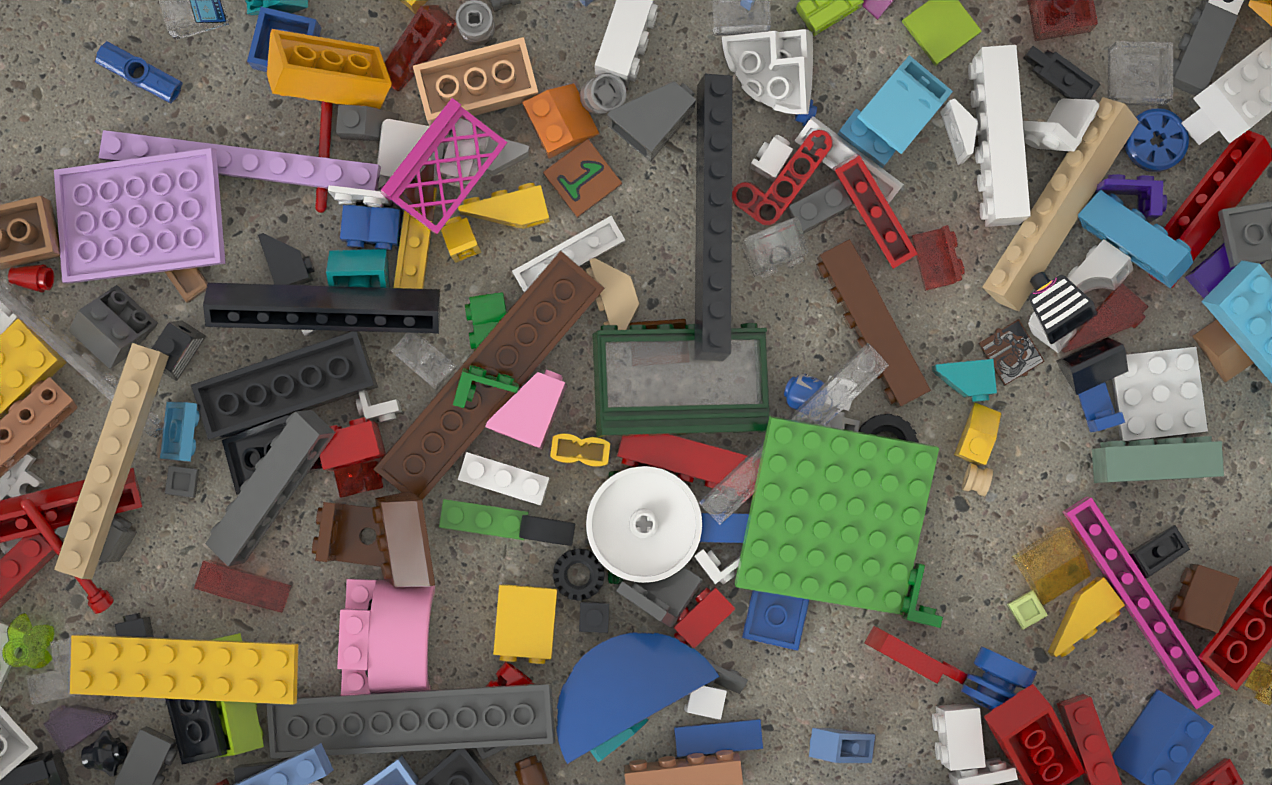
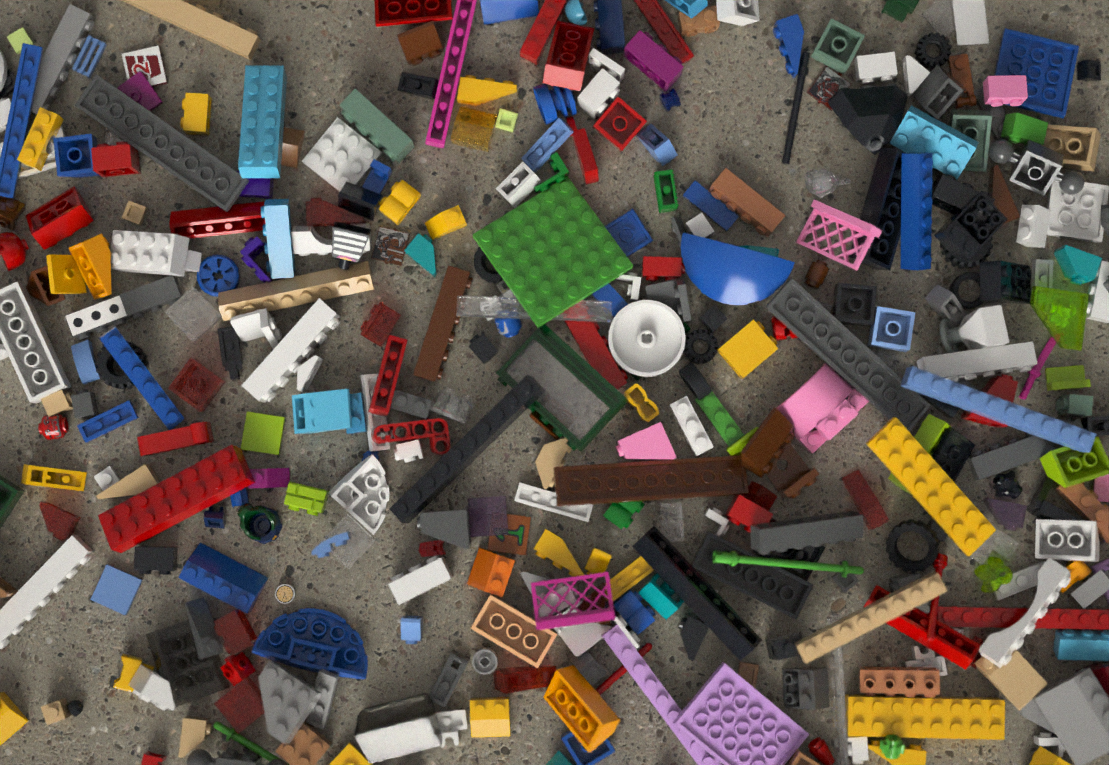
camera: 130 degrees left, 0 degrees up
(138, 560) = (899, 559): none -> black tyre
(179, 431) = (823, 603): dark azure plate -> none
(319, 380) = (732, 558): none -> bright green bar
(432, 510) = (736, 448): none -> lime slope
(466, 390) = (655, 486): green bracket -> none
(603, 93) = (459, 563): light grey wheel -> none
(622, 173) = (488, 516): none -> clear purple slope
(646, 81) = (431, 548): none -> red piece
(782, 704) = (665, 191): none -> green brick
(805, 341) = (482, 348): none -> black brick
(904, 727) = (619, 124): none -> red brick
(944, 551) = (518, 185): none -> white brick
(957, 625) = (547, 145): none -> medium blue plate
(977, 479) = (468, 202): tan wheel -> none
(1050, 407) = (399, 201): none -> yellow brick

